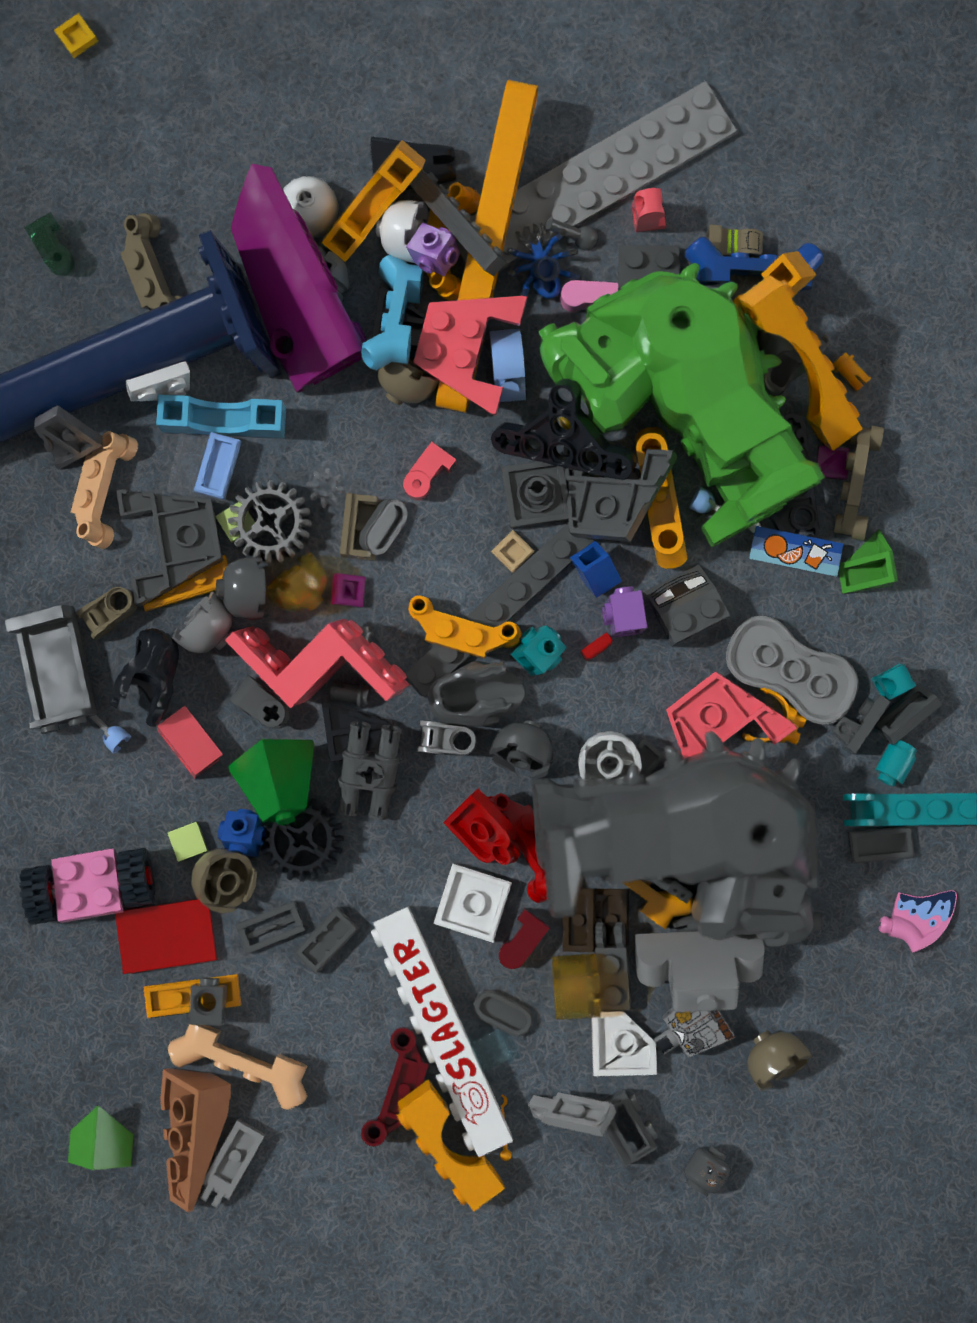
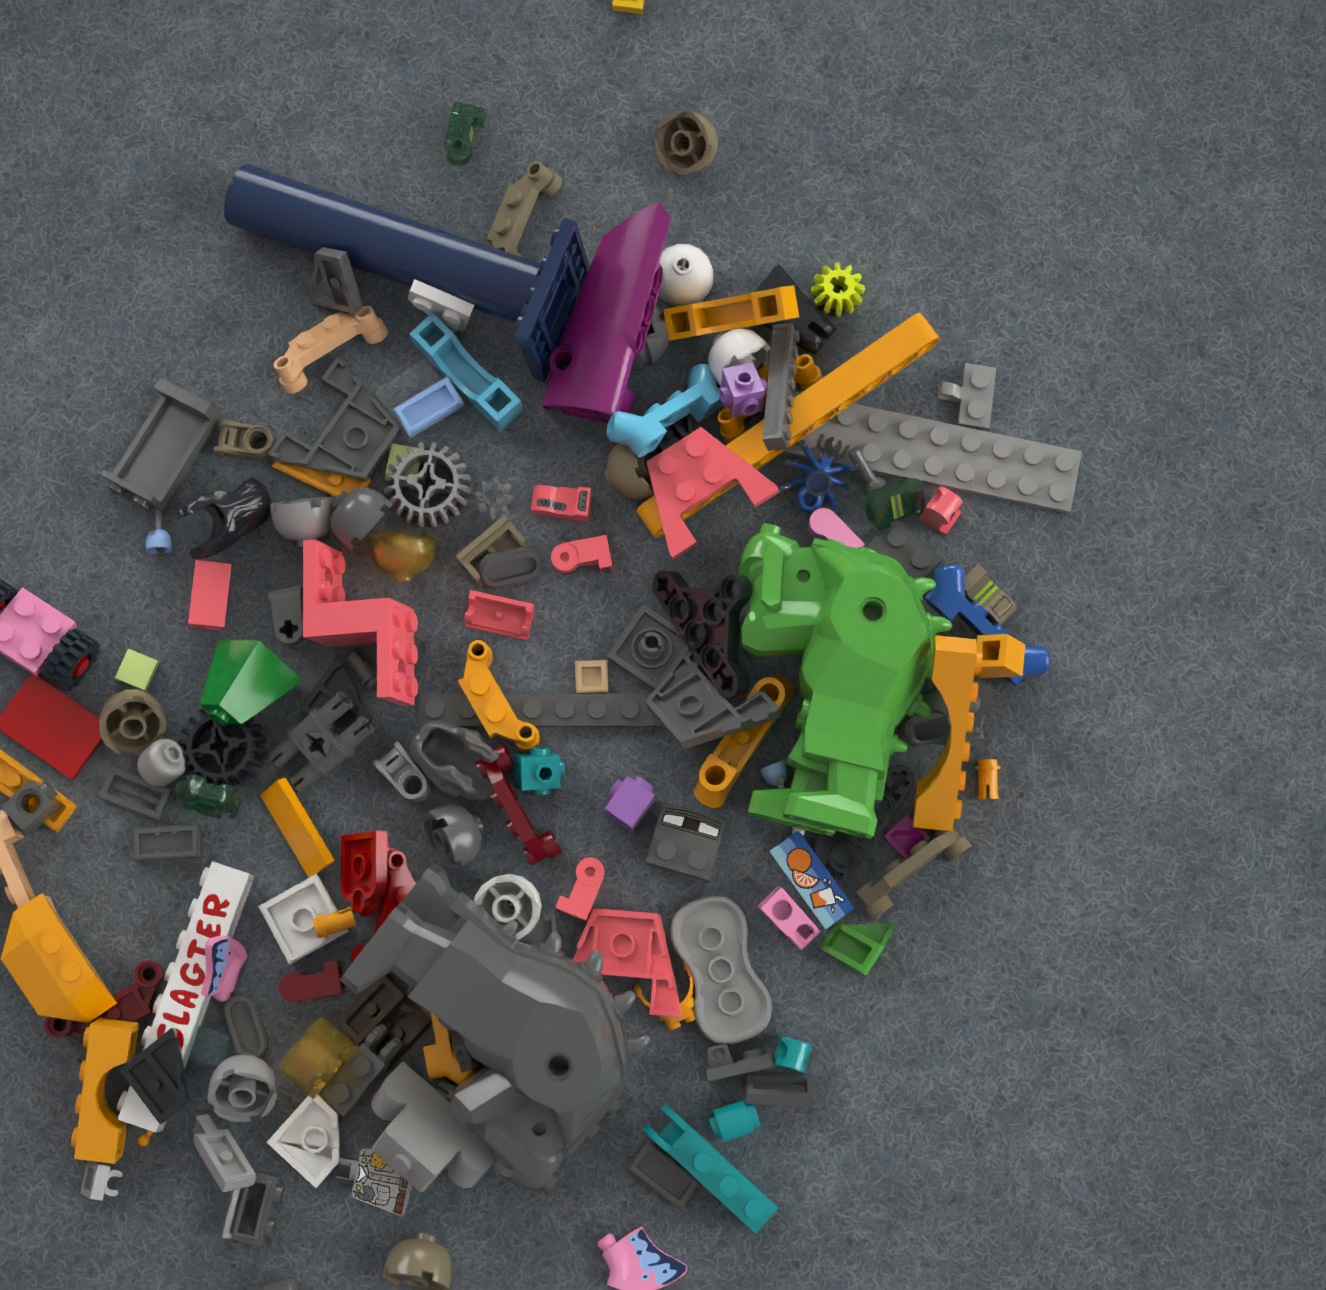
camera: 40 degrees right, 5 degrees down
(222, 106) = (686, 142): none -> dark tan cylinder
(242, 832) = (180, 699): blue brick -> none
(271, 888) = (161, 762): none -> light grey head
(328, 883) = (208, 798): none -> clear green plate
(331, 1097) = (52, 965): none -> light orange wedge
(348, 590) = (437, 591): magenta tile -> none
(376, 447) = (562, 502): none -> coral leg
(408, 567) = (499, 615): none -> coral hinge
(408, 845) = (297, 827): none -> light orange tile
(418, 122) = (846, 298): none -> neon yellow gear
(448, 982) = (223, 963): none -> bright pink arm
(481, 1101) = (159, 1076): none -> black wing
(498, 885) = (334, 922): none -> light orange pin
(501, 1212) = (96, 1178): none -> light grey tile
(508, 363) = (721, 529): light blue brick -> none
(543, 1055) = (242, 1088): none -> light grey cylinder
(587, 702) = (537, 846): none -> dark red plate
(593, 109) = (974, 396): none -> light grey plate
(596, 569) = (640, 748): blue brick -> none
(596, 647) = (585, 809): red tile -> none
(609, 235) = (894, 502): none -> clear green leg
(648, 700) = (589, 880): none -> coral leg
(804, 591) = (788, 918): none -> bright pink leg

